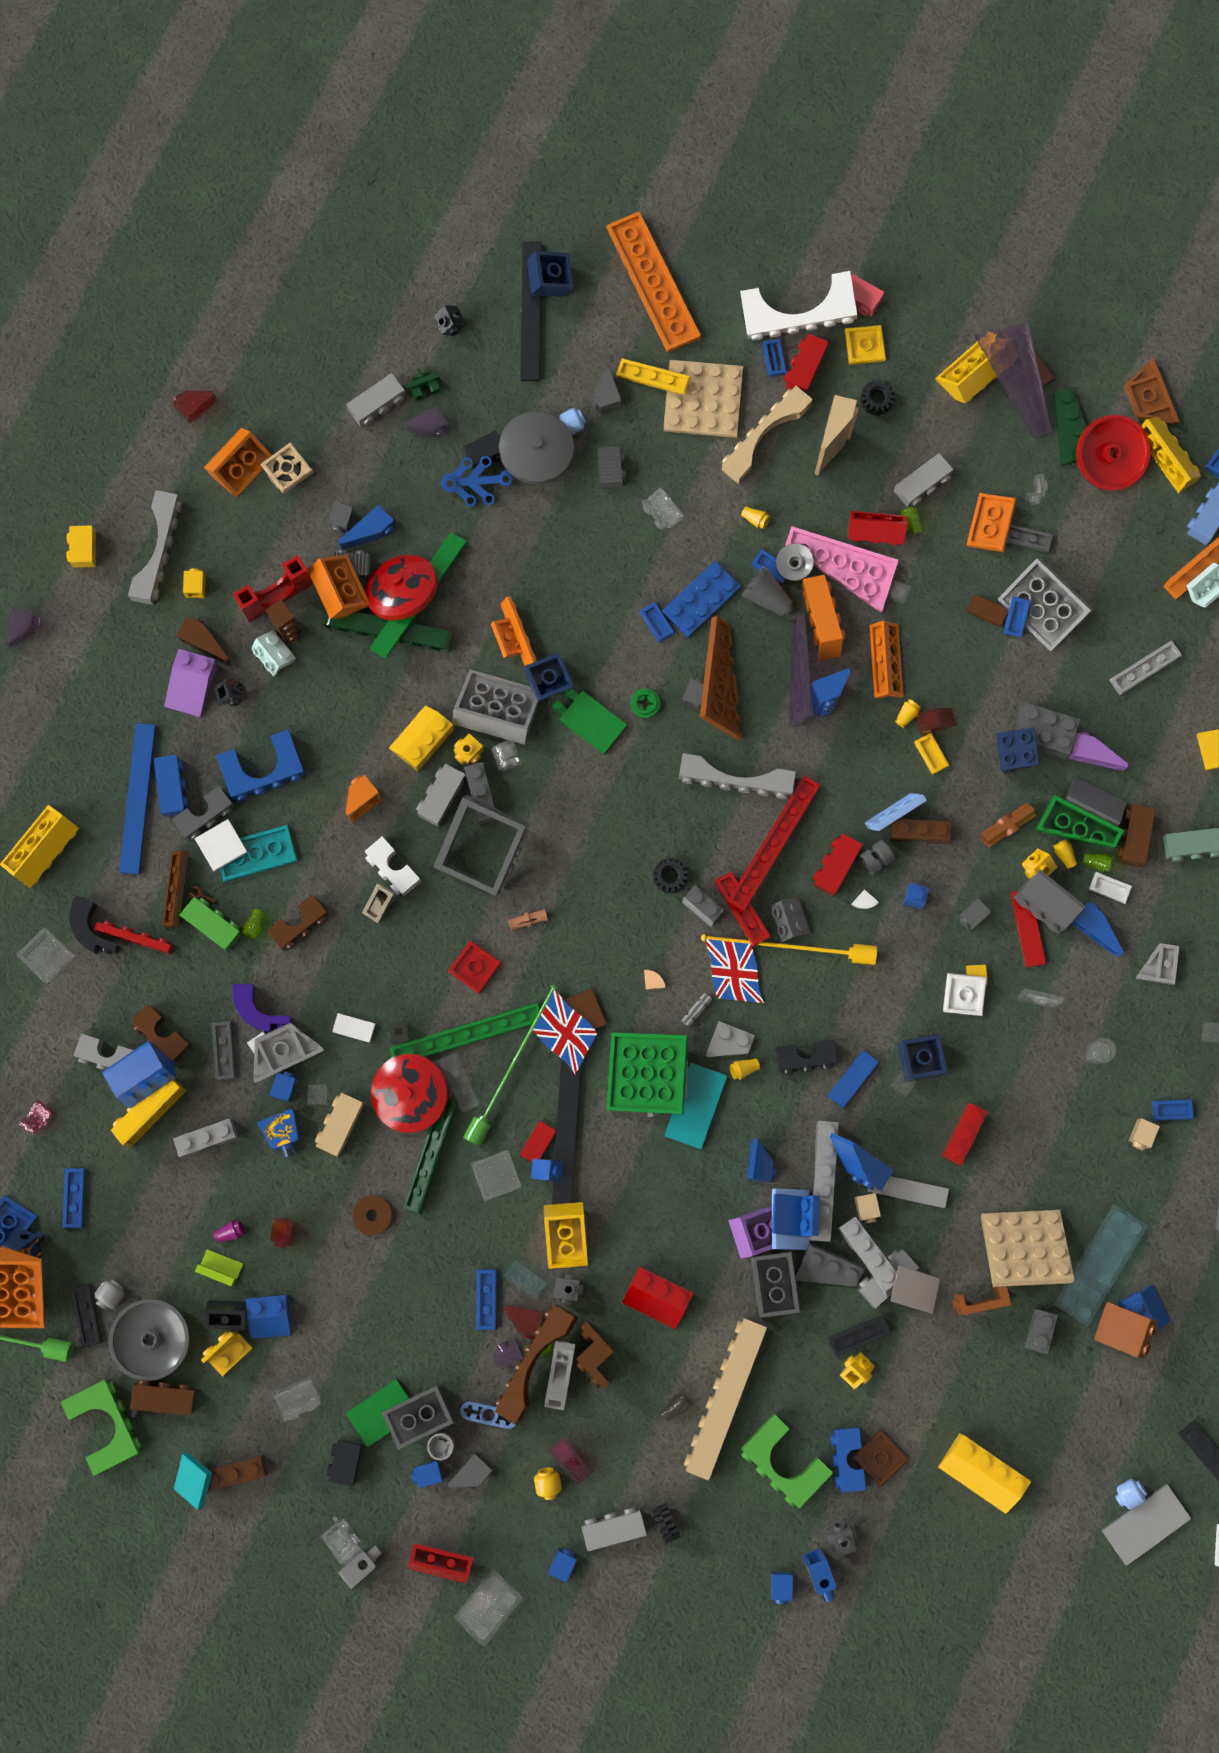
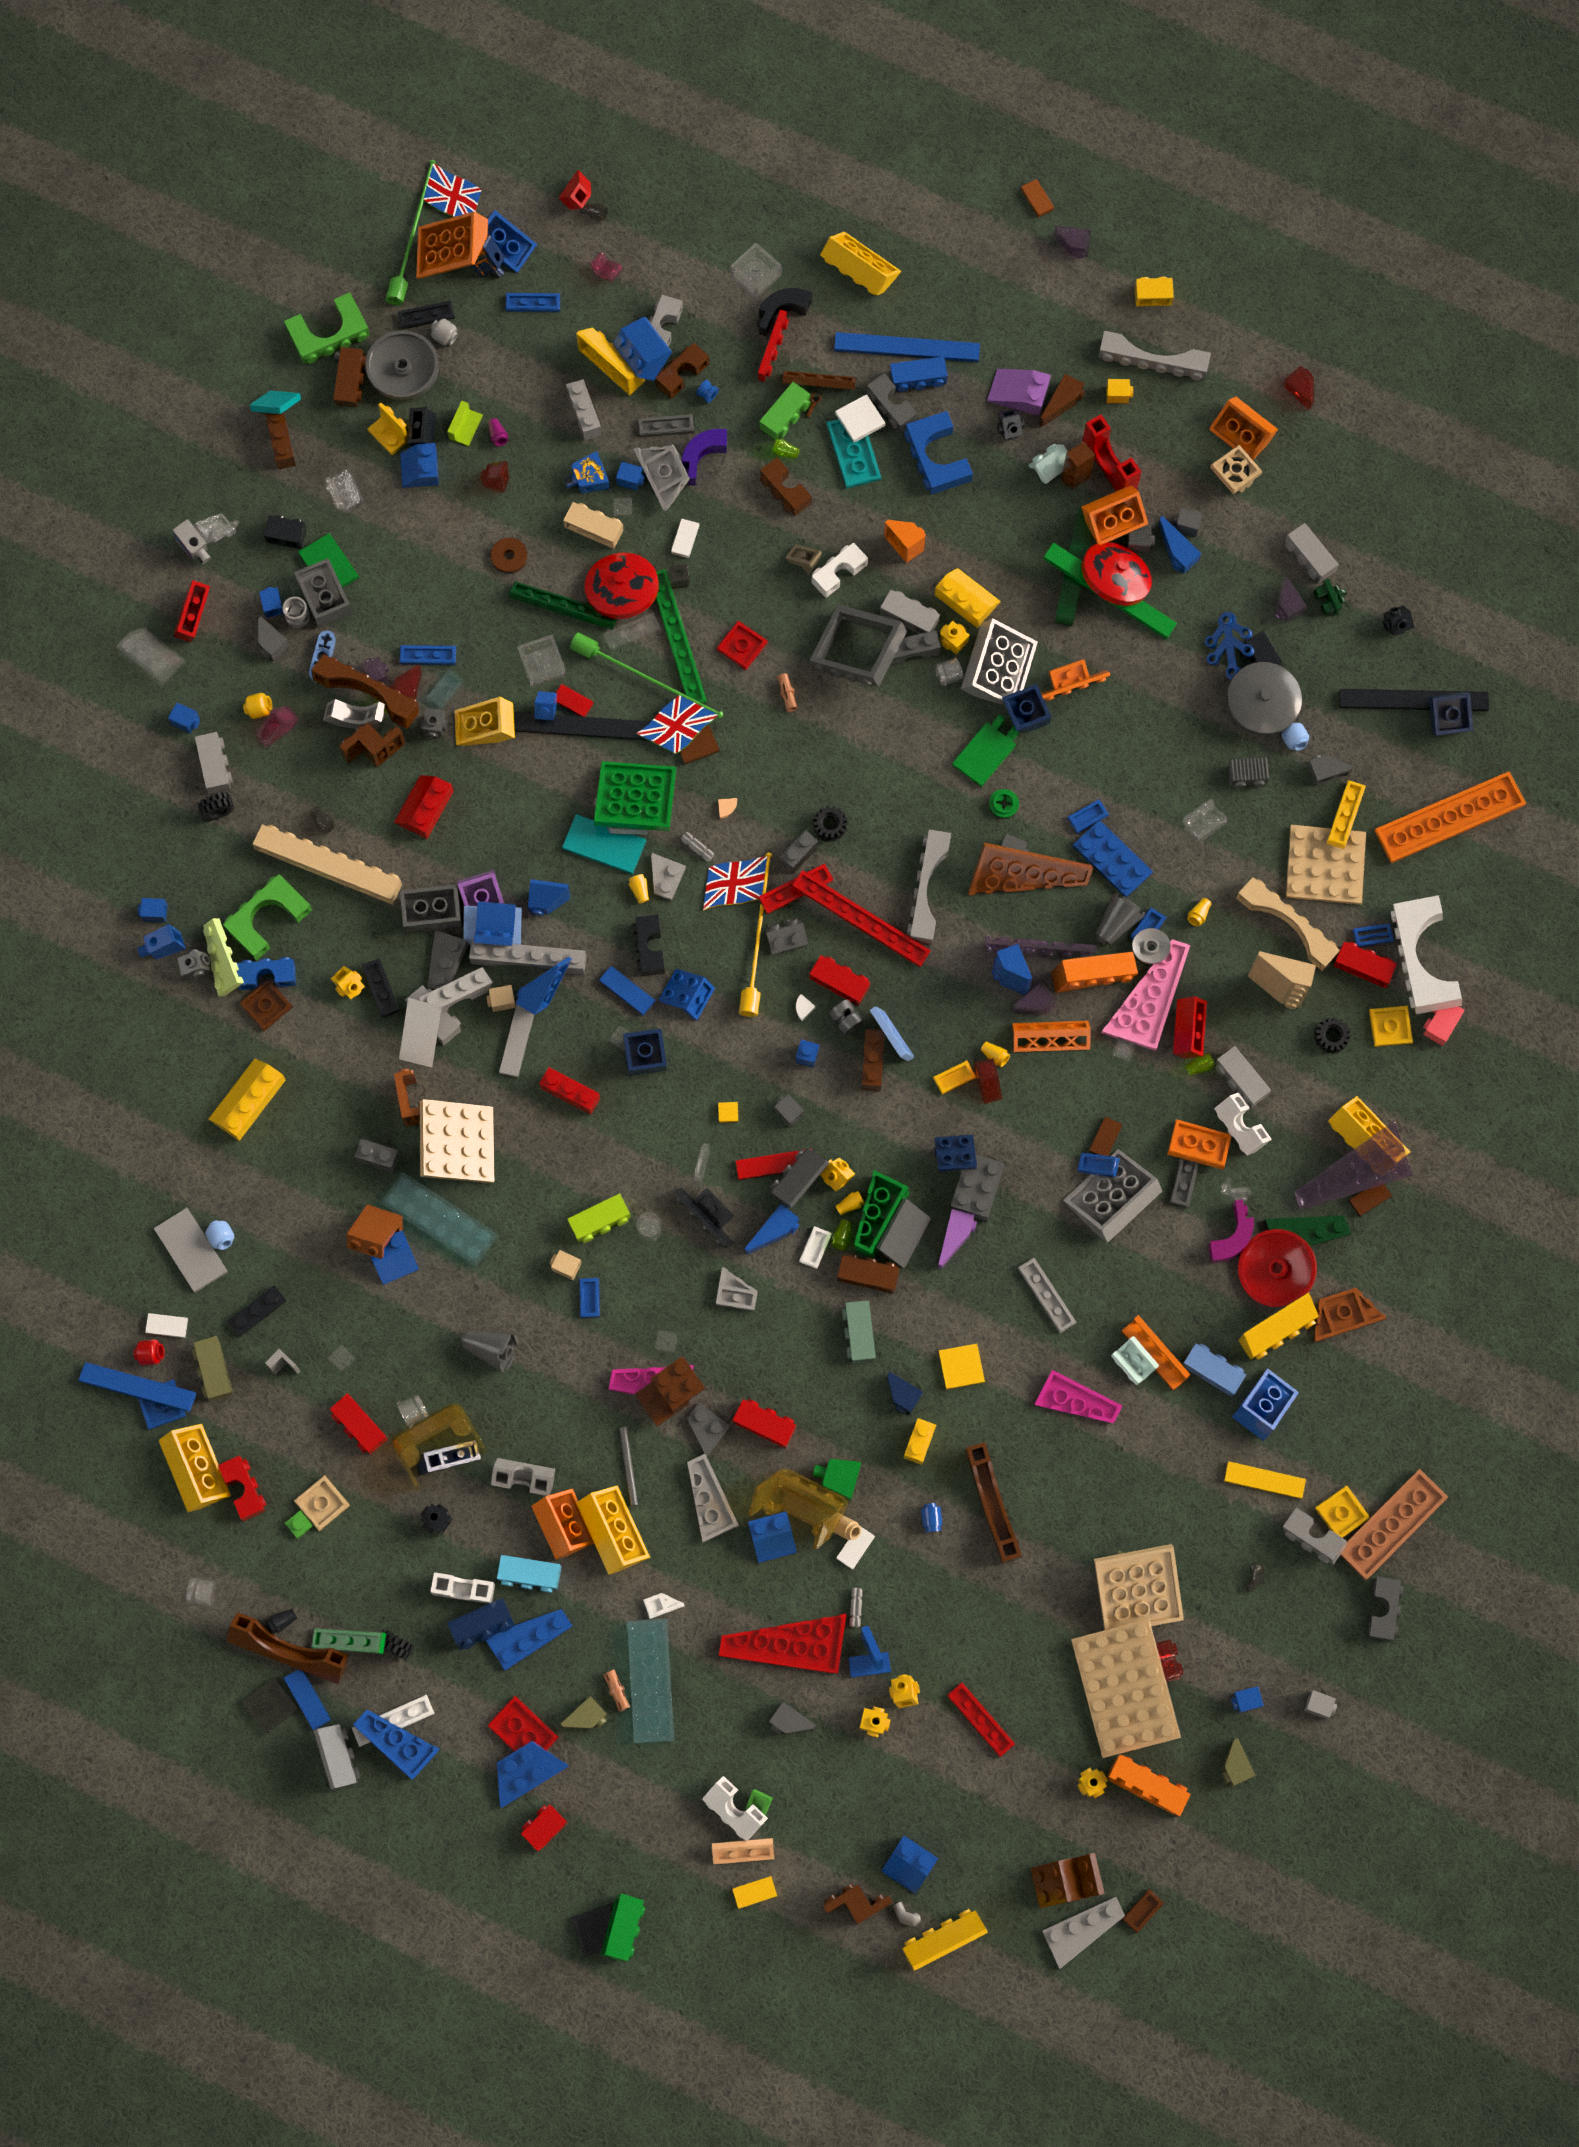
camera: 90 degrees right, 5 degrees down
(186, 1006) = (707, 391): none -> blue wheel
(833, 1509) = (220, 955): none -> yellowish green wing
(854, 1018) = (687, 992): none -> blue bracket
(857, 674) = (1036, 1002): none -> slope
(964, 994) = (708, 1098): white tile -> none
(985, 475) = (1231, 1113): none -> white arch
(1007, 825) = (880, 1147): dark orange piece -> none
(1082, 992) = (709, 1212): none -> black bracket
(1085, 488) = (1227, 1249): none -> magenta arch
(1094, 1101) = (599, 1218): none -> lime brick

